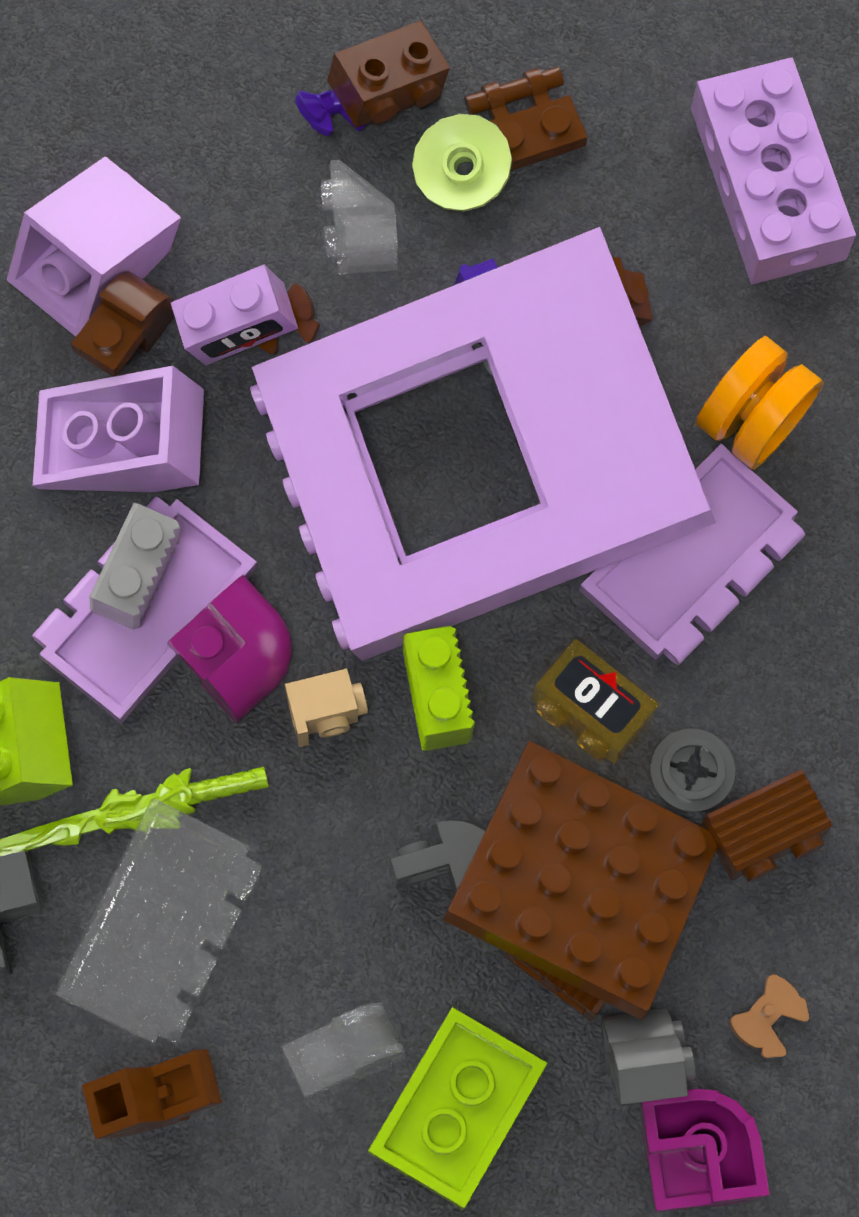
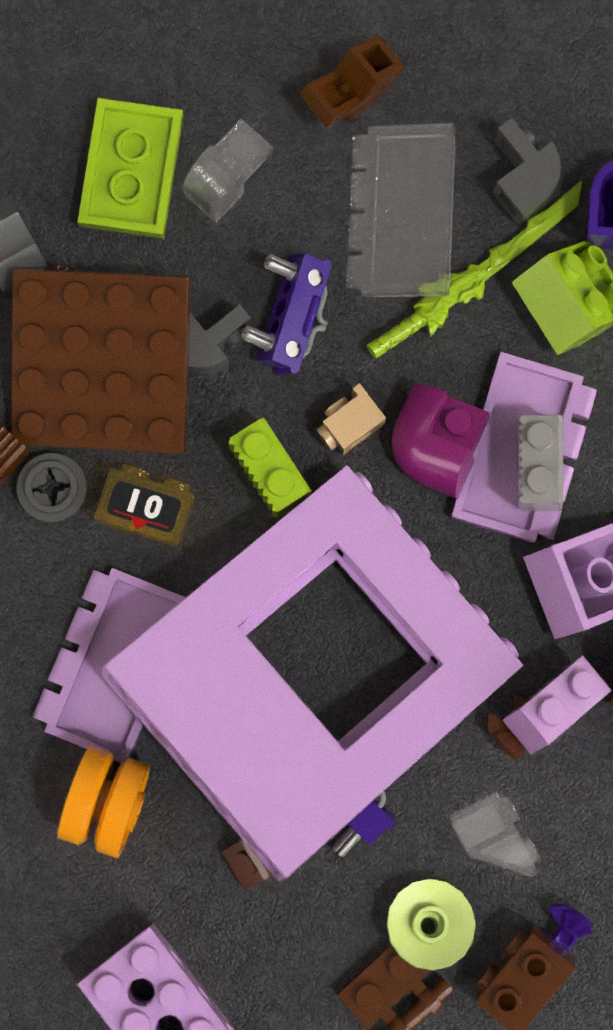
camera: 160 degrees right, 10 degrees up
(337, 855) = (296, 306): none -> dark purple piece

